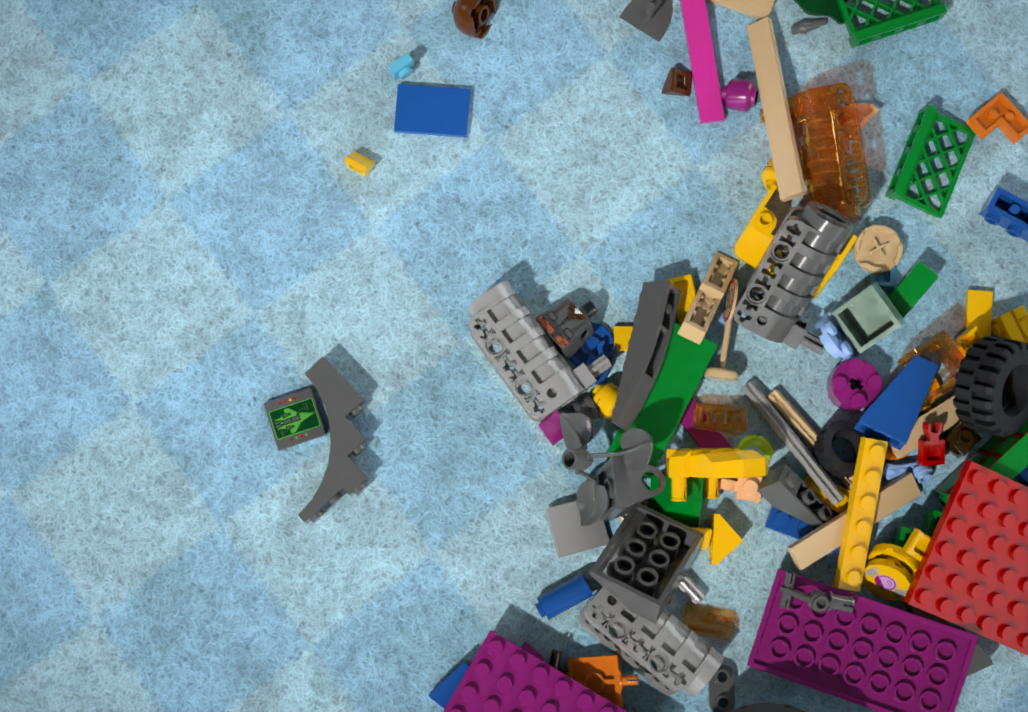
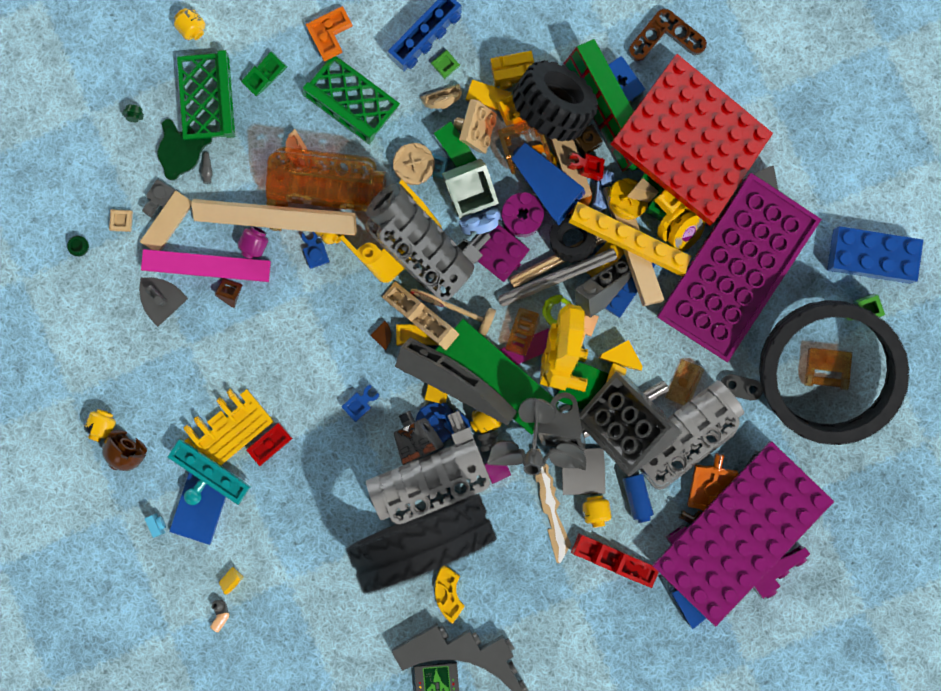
camera: 75 degrees left, 5 degrees up
(320, 163) = (222, 614): none -> arm
(401, 404) = (446, 594): none -> yellow tile
(457, 352) = (421, 545): none -> black tyre
(472, 109) = (208, 473): none -> teal plate
(484, 588) = (614, 560): none -> red slope
(497, 515) = (558, 536): none -> sword
(520, 168) = (269, 444): none -> red plate
(522, 120) = (230, 432): none -> yellow hinge
(536, 552) = (596, 511): none -> yellow head
(588, 254) = (358, 405): none -> blue plate
(674, 262) = (382, 335): none -> reddish brown tile
(747, 166) = (315, 253): none -> blue plate
(803, 373) = (502, 253): none -> magenta plate
(815, 599) = (691, 296): dark grey pin -> none
(905, 501) = (621, 204): none -> yellow tile
(919, 515) = (643, 191): none -> tan slope
(930, 61) = (262, 76): none -> green slope
(941, 308) = (476, 126): none -> tan plate
(961, 264) = (442, 98): none -> tan plate
(1001, 258) = (445, 64): none -> bright green tile

